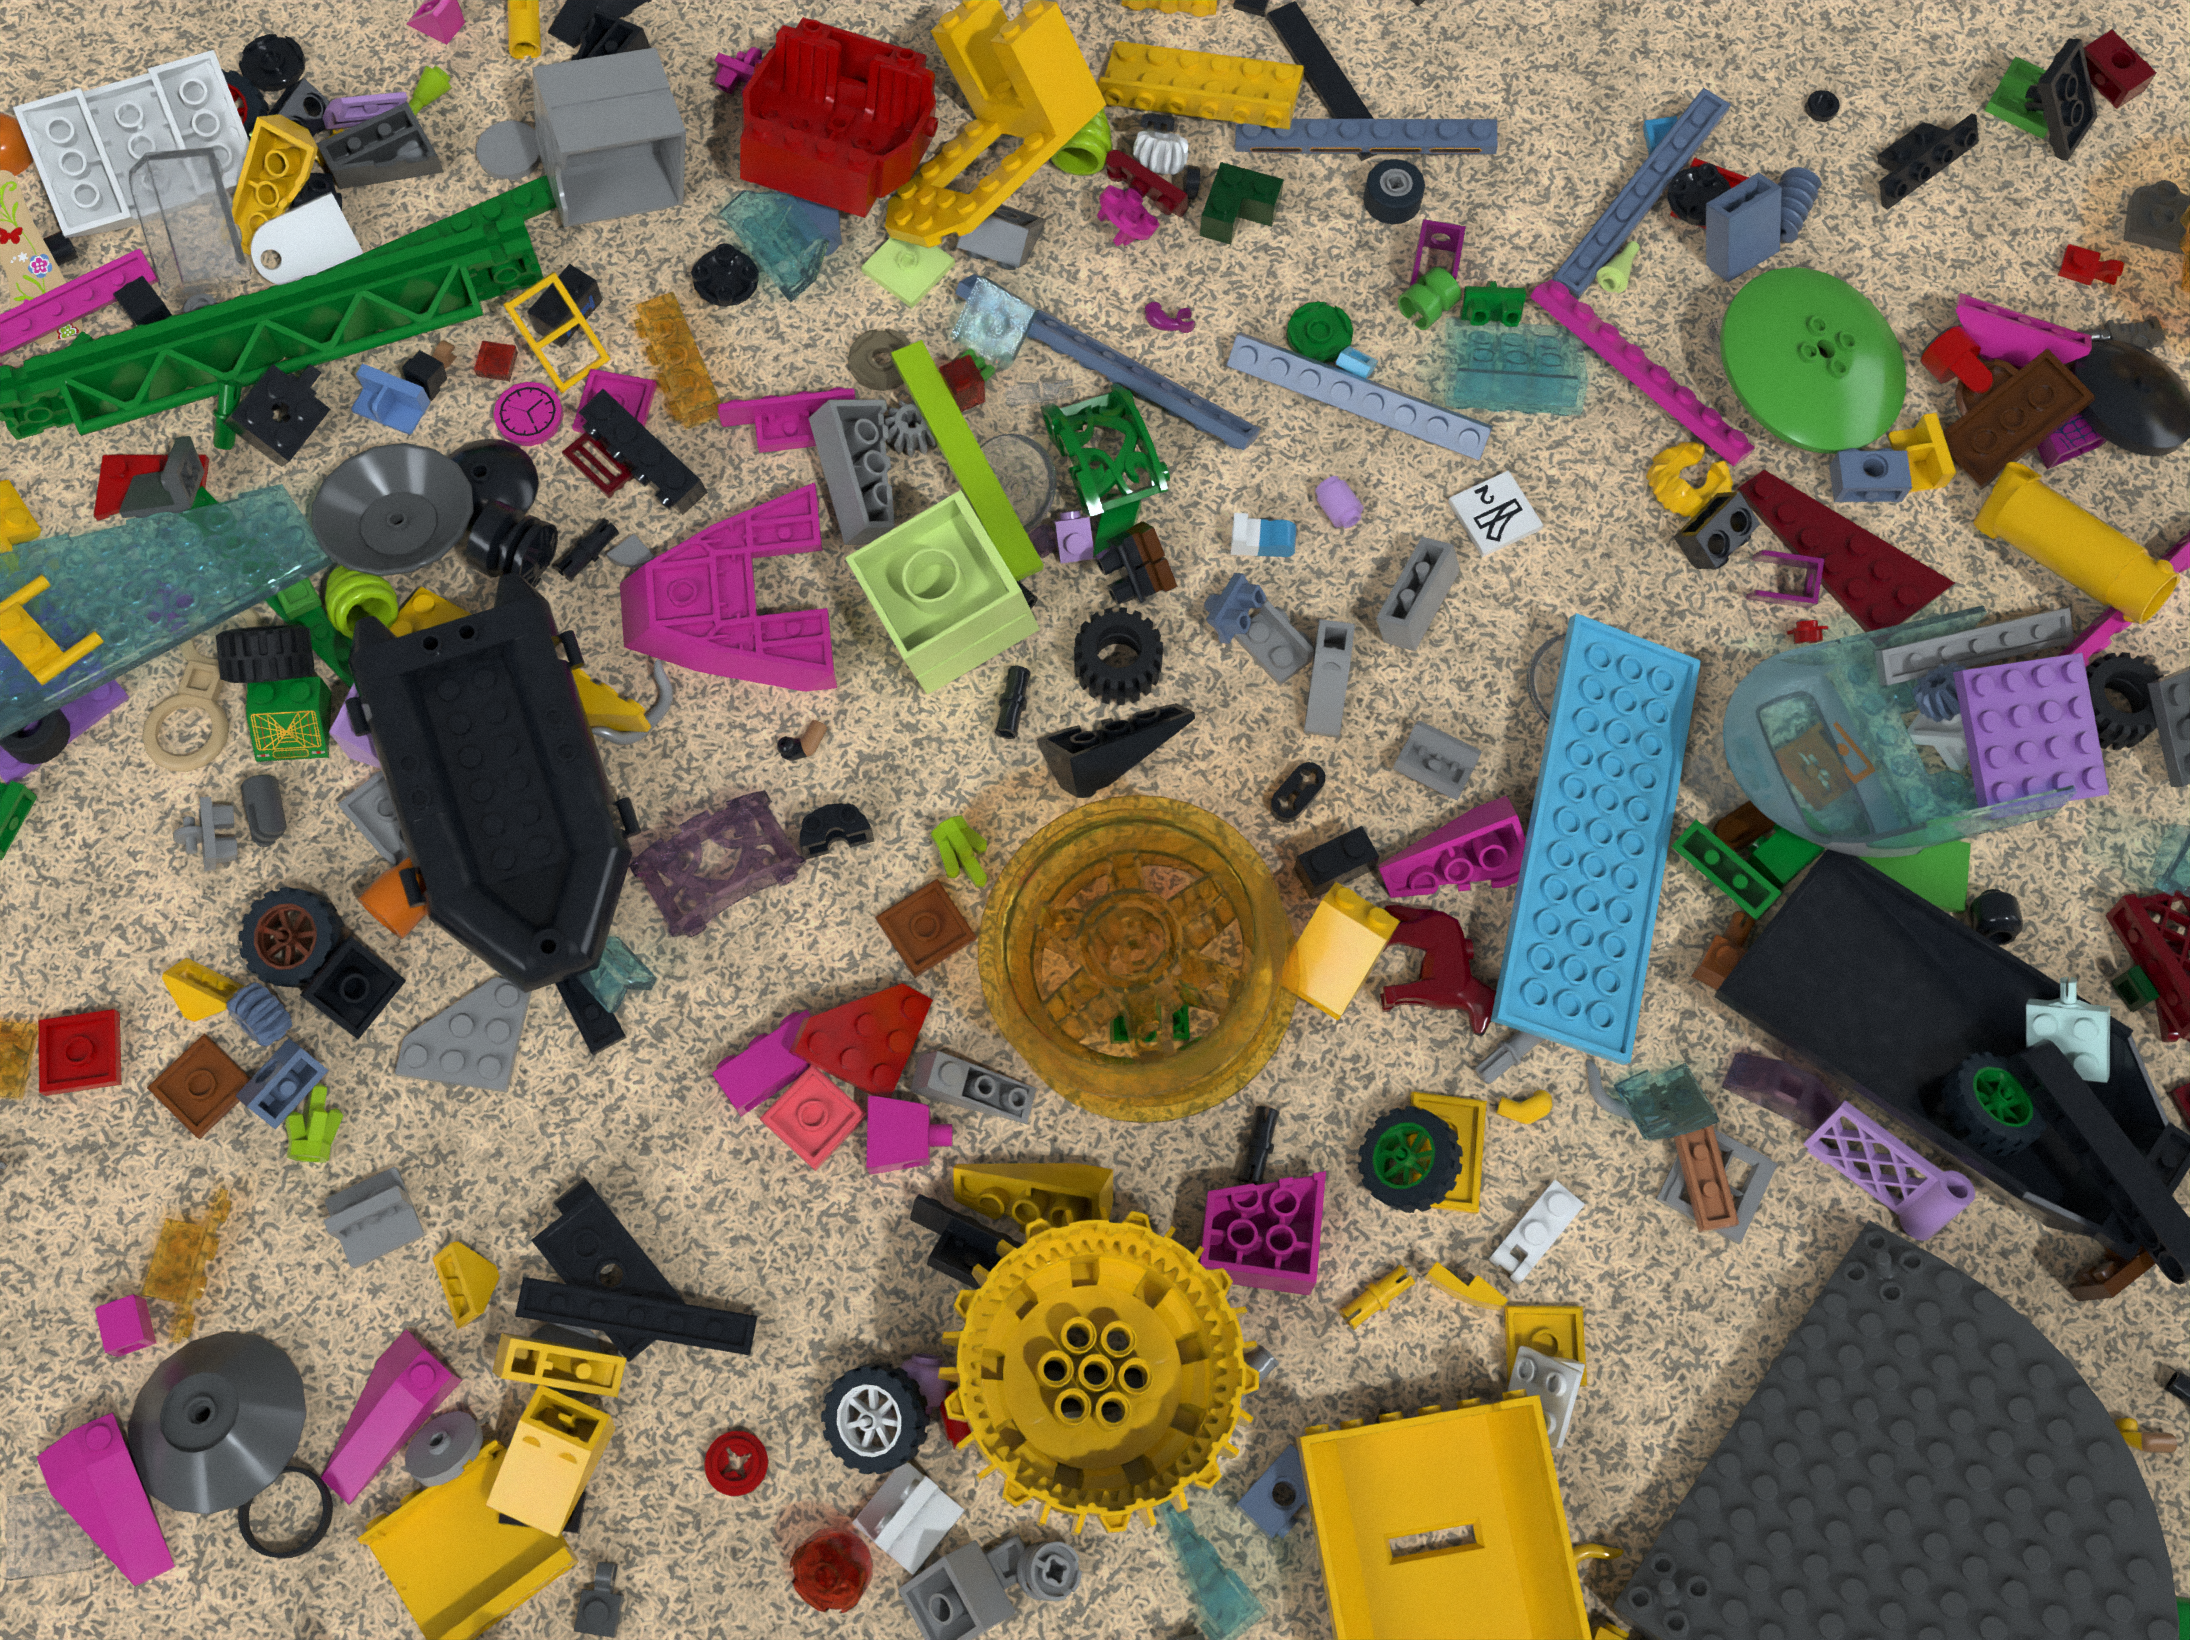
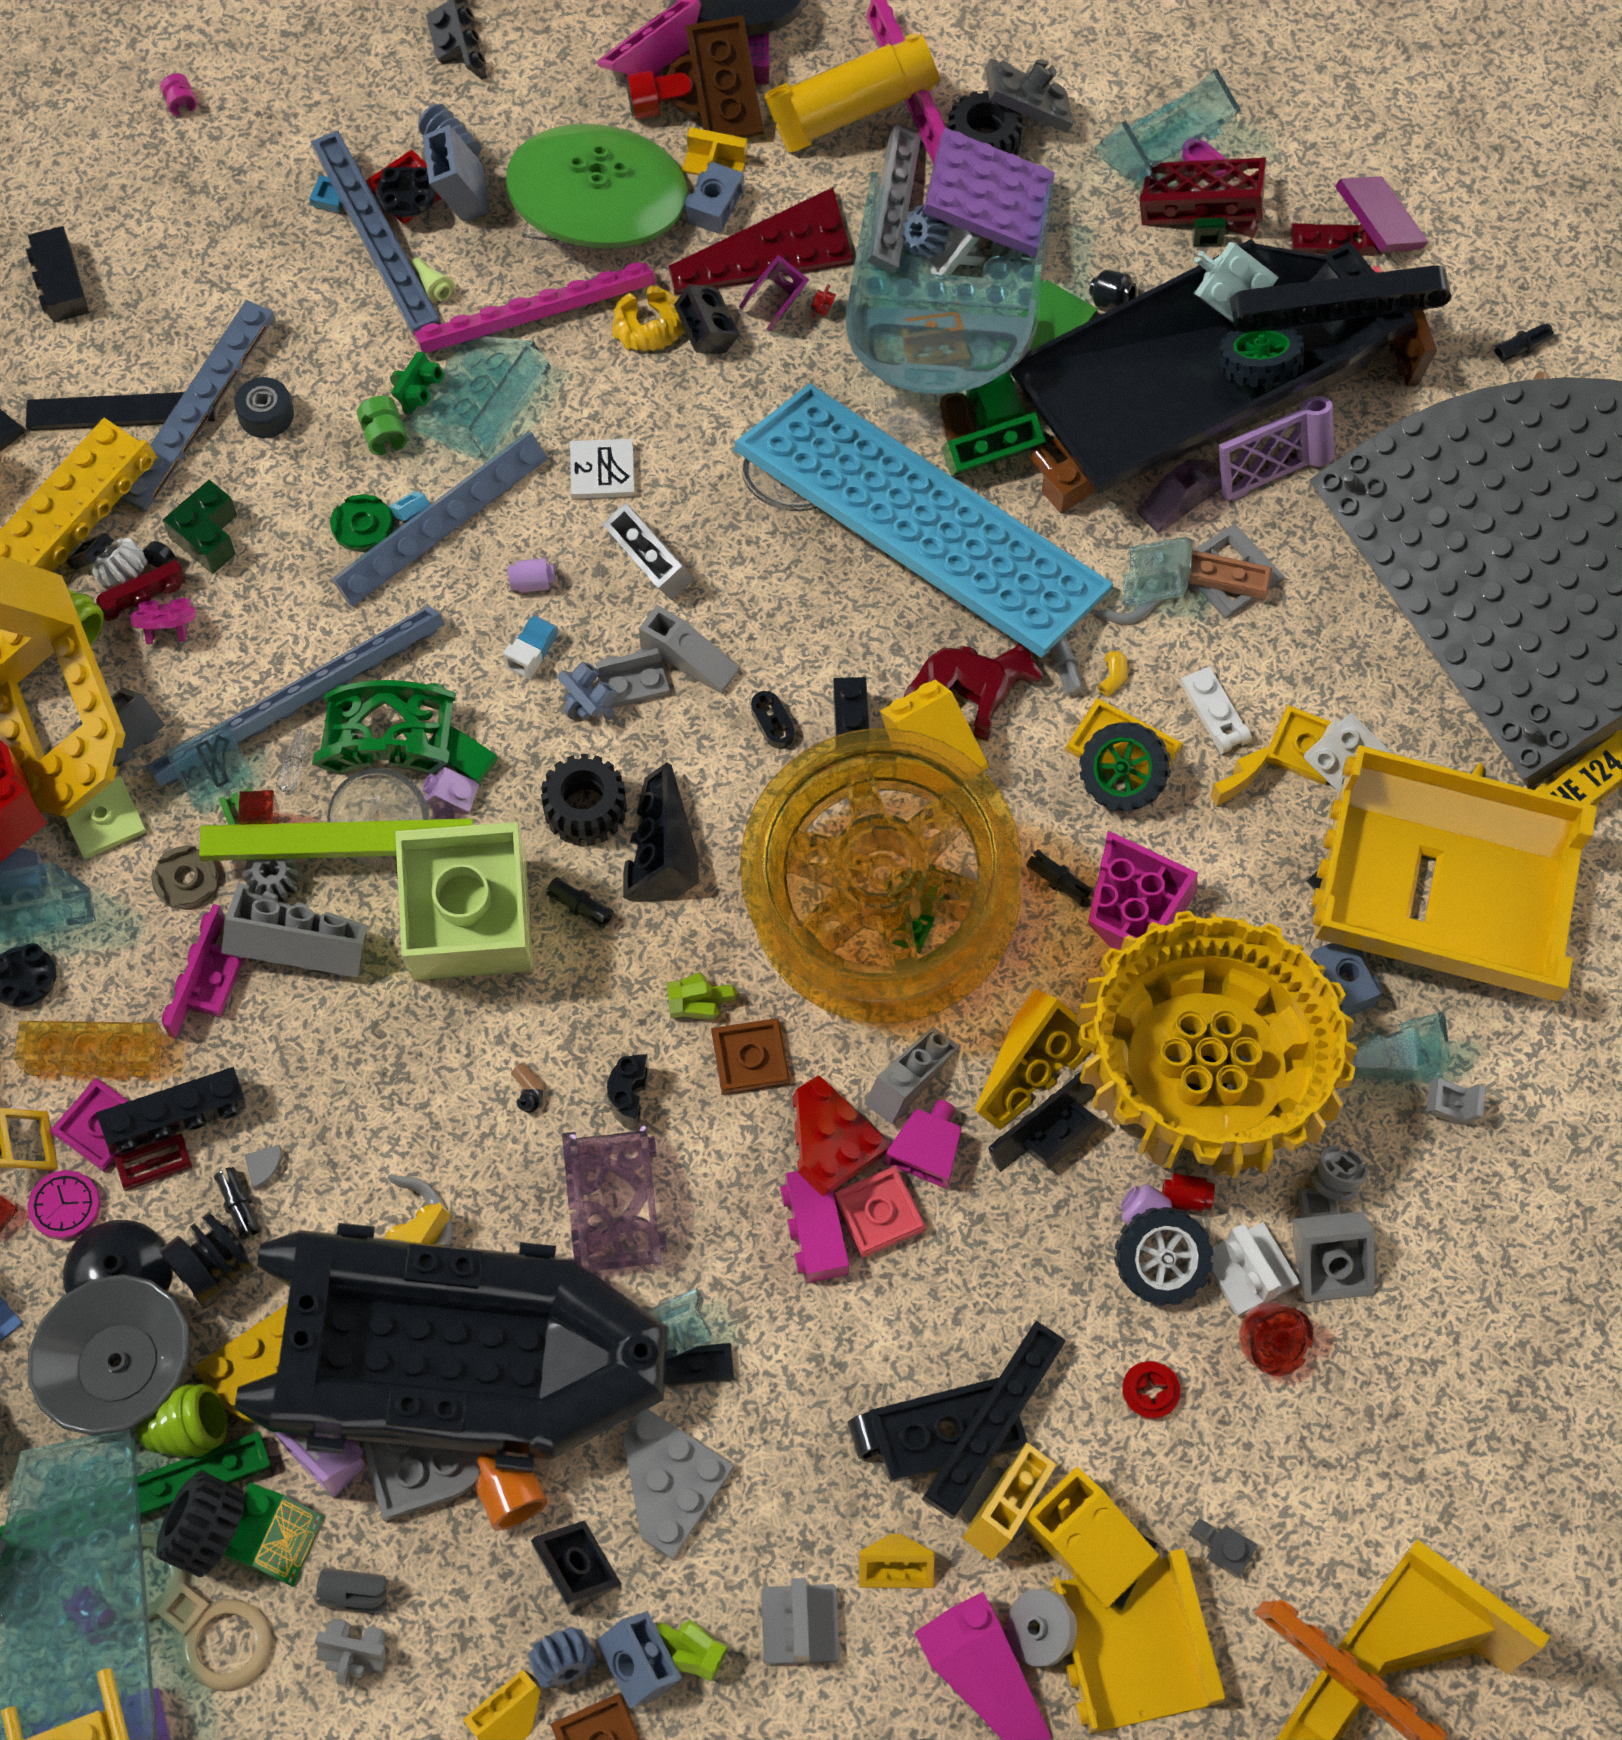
camera: 65 degrees left, 5 degrees down
(259, 928) = (530, 1624): black wheel -> none
(299, 598) = (151, 1480): bright green tile -> none
(701, 602) = (353, 1120): dark pink piece -> none
(1140, 563) = (509, 745): black hips -> none
(1158, 319) = (279, 638): magenta arm -> none
(1377, 1296) = (1218, 844): yellow pin -> none
(1425, 239) = (334, 413): magenta piece -> none
(1437, 760) = (798, 604): light grey bracket -> none
(1471, 848) = (886, 605): dark pink wedge -> none
(1822, 106) = (368, 74): black tile -> none

